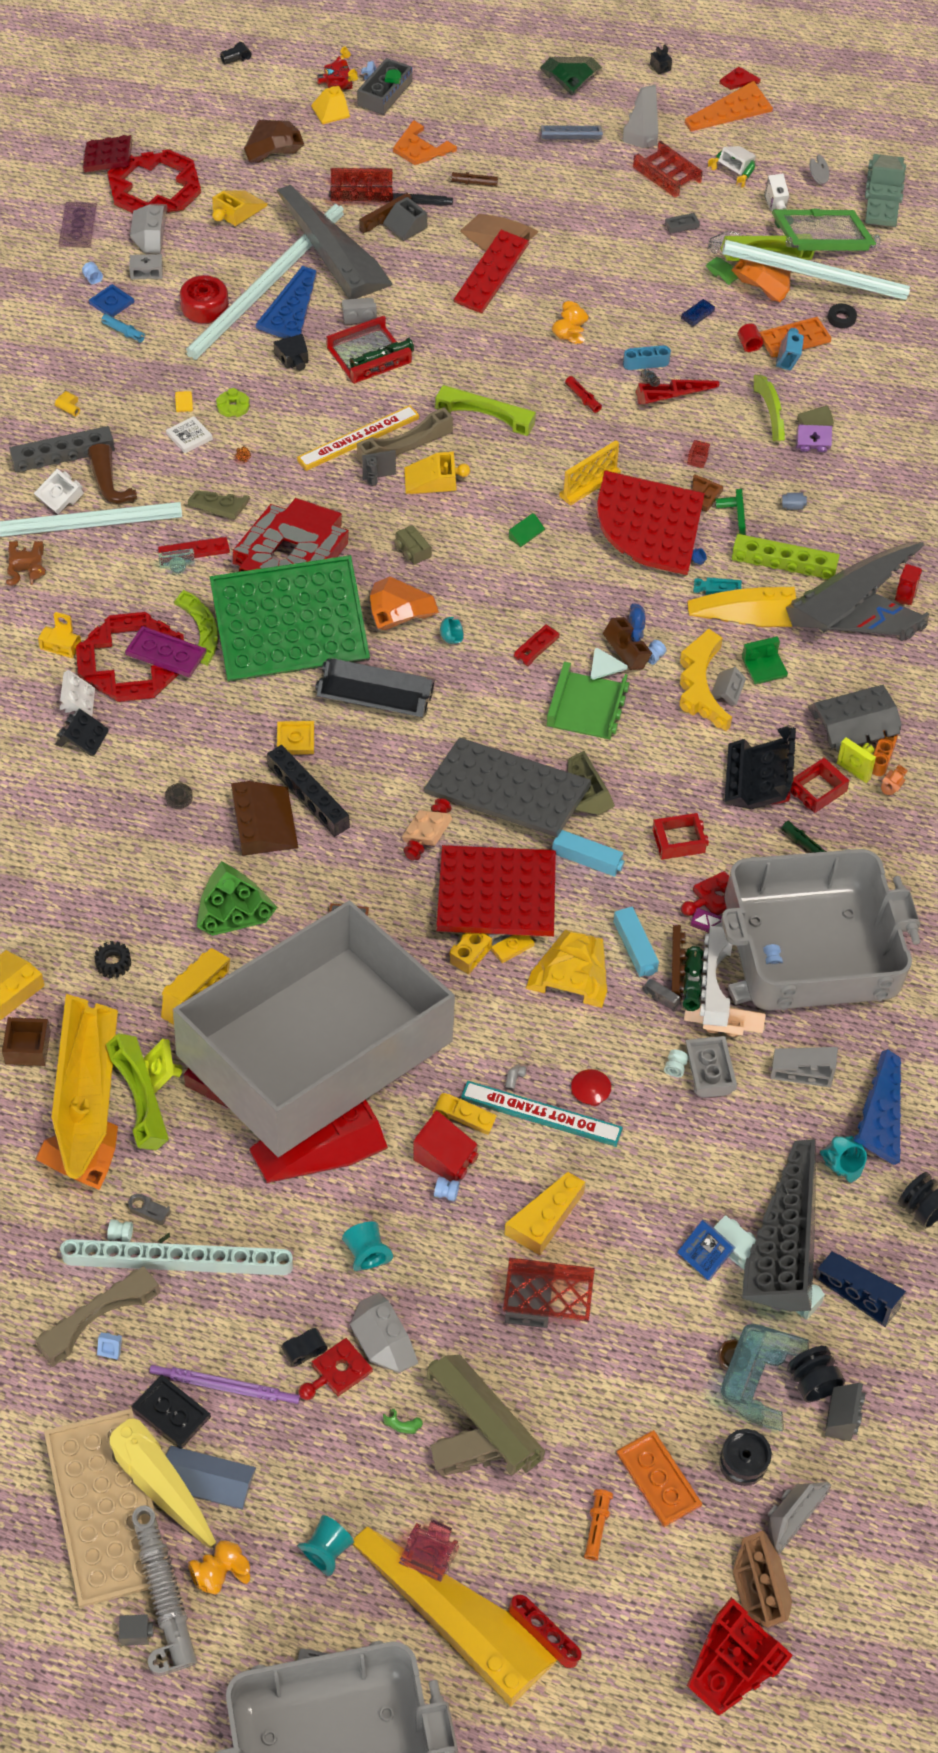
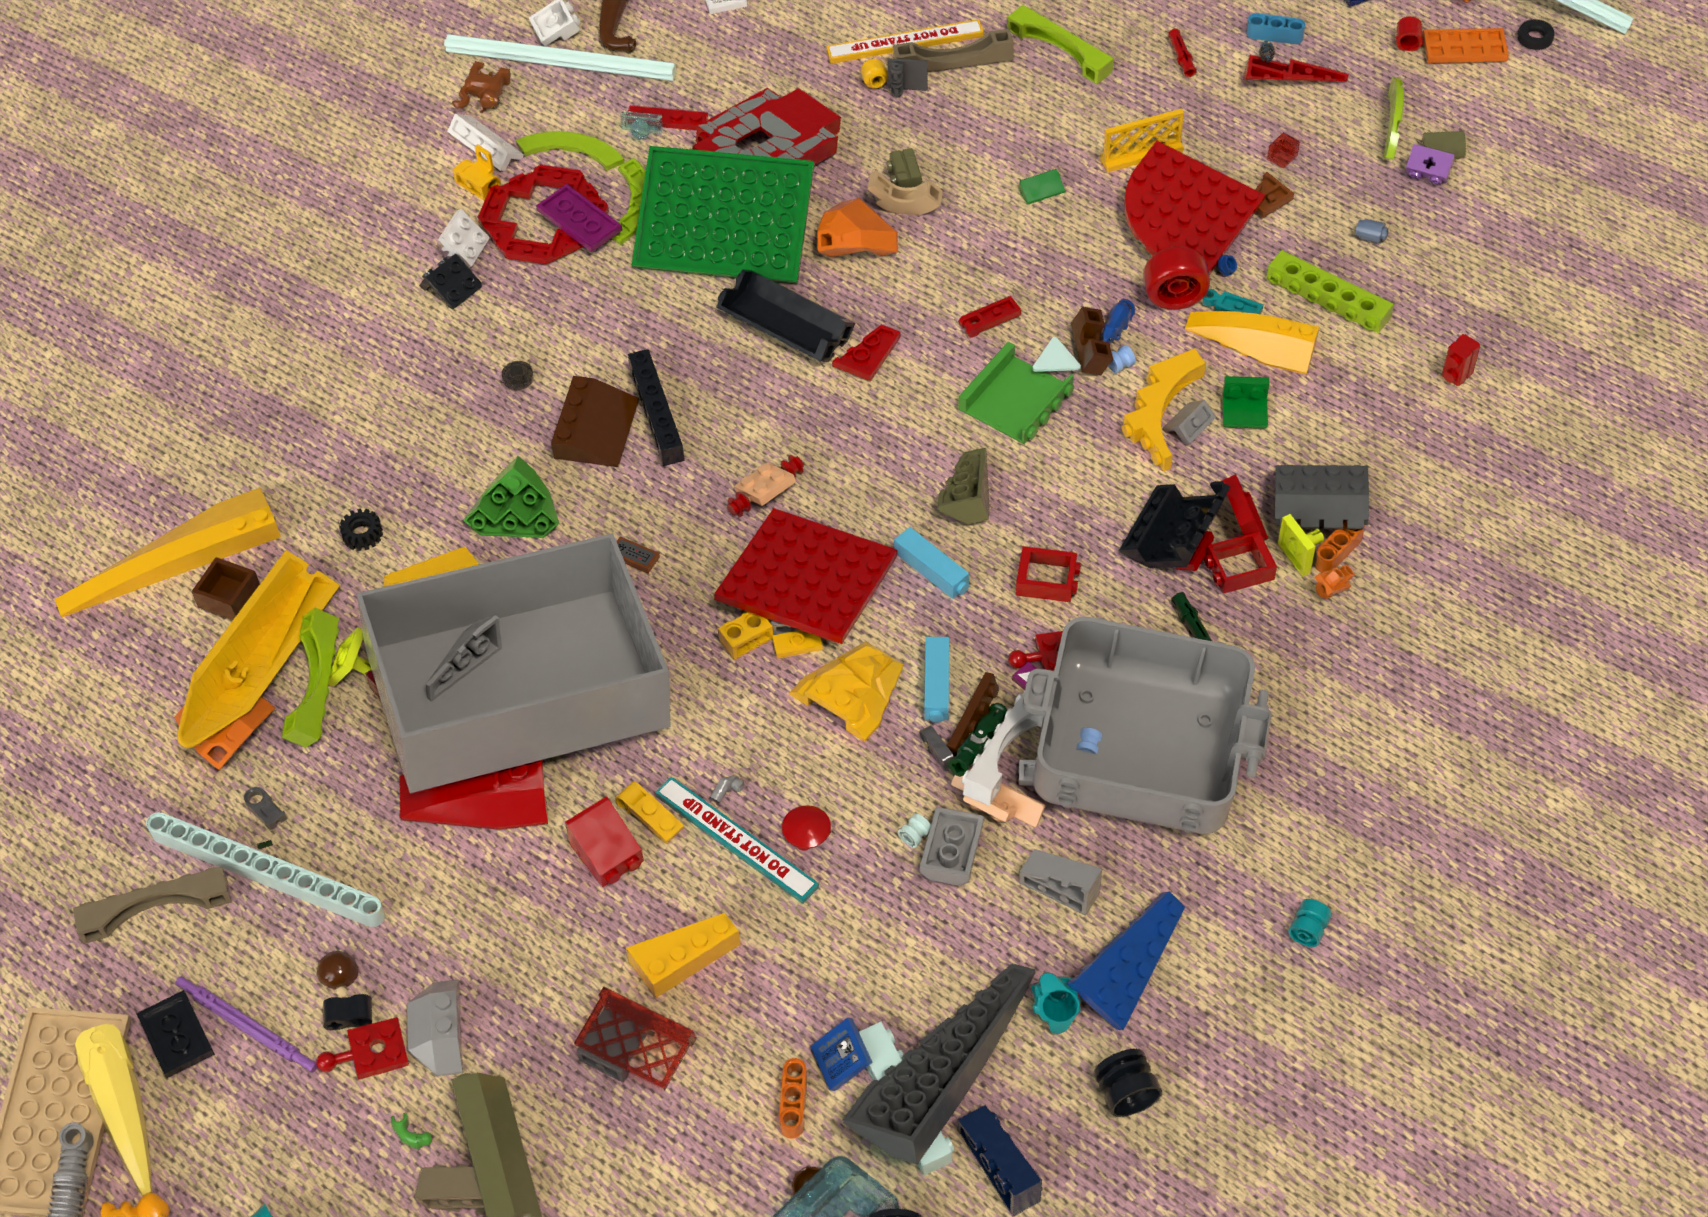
camera: 25 degrees right, 0 degrees up
(45, 607) = (472, 132): none -> white fence
(109, 1345) = (148, 940): light blue tile -> none
(120, 1230) = (221, 821): light aqua wheel -> none
(125, 589) = (572, 142): none -> lime tile
(212, 1477) = (181, 1119): sand blue slope -> none
(225, 506) = (719, 78): olive wing -> none
(243, 454) = (769, 29): clear orange plate -> none
(269, 1024) = (469, 651): none -> light grey wedge
(277, 1317) = (337, 969): none -> reddish brown hair
(296, 736) = (673, 346): yellow plate -> none
(348, 470) = (874, 73): none -> yellow head
(367, 1246) = (465, 923): teal hat -> none
(426, 568) = (903, 200): none -> tan arch
(434, 474) = (968, 100): yellow slope -> none
(446, 1189) = (587, 889): light blue wheel -> none
(451, 630) = (900, 273): teal hair -> none
(456, 701) = (870, 354): none -> red wing
(508, 787) = (877, 464): dark grey plate -> none
(671, 576) = (1176, 278): none -> red wheel
(685, 1304) = (793, 1087): none -> orange beam
(736, 501) = (1303, 220): green piece -> none
(793, 344) = (1450, 53): dark azure torso -> none
(805, 744) = (1244, 508): none -> red container
(840, 593) = (1362, 350): dark grey wedge -> none
(882, 617) = (1405, 384): dark grey piece -> none

